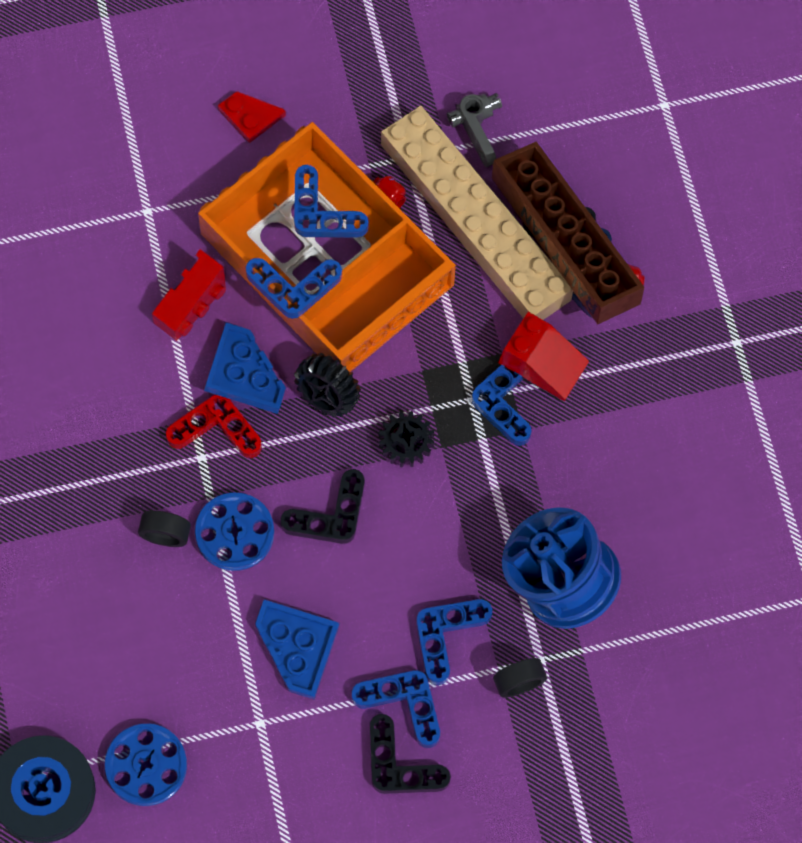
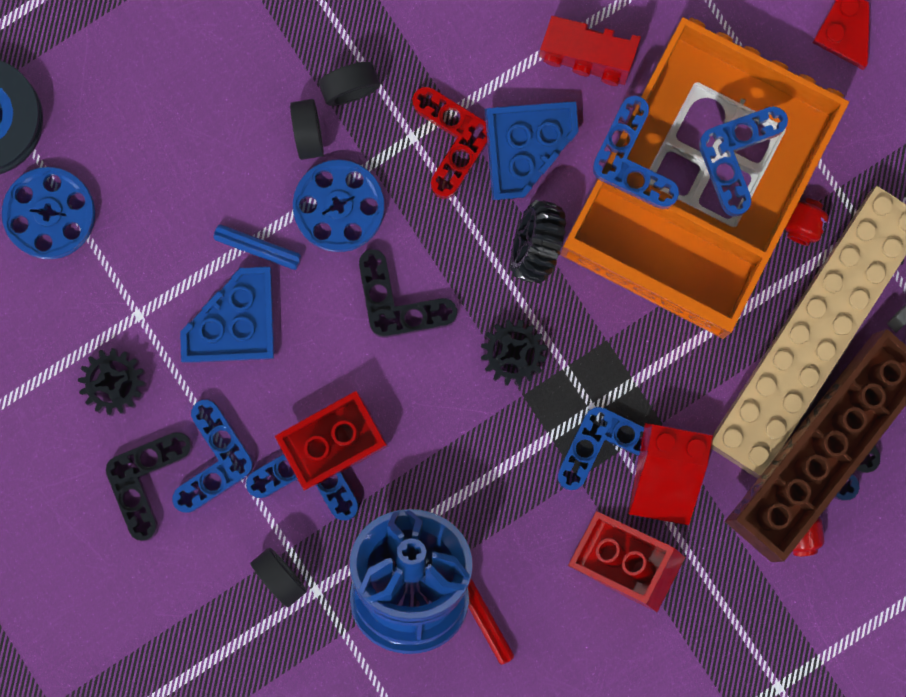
camera: 75 degrees right, 15 degrees up
(141, 483) = (349, 83): none -> black tyre
(242, 606) = (257, 247): none -> blue axle
(320, 759) = (107, 369): none -> black gear
(424, 596) = (331, 440): none -> red slope
(600, 413) = (627, 561): none -> red slope
(624, 534) = (488, 625): none -> red axle

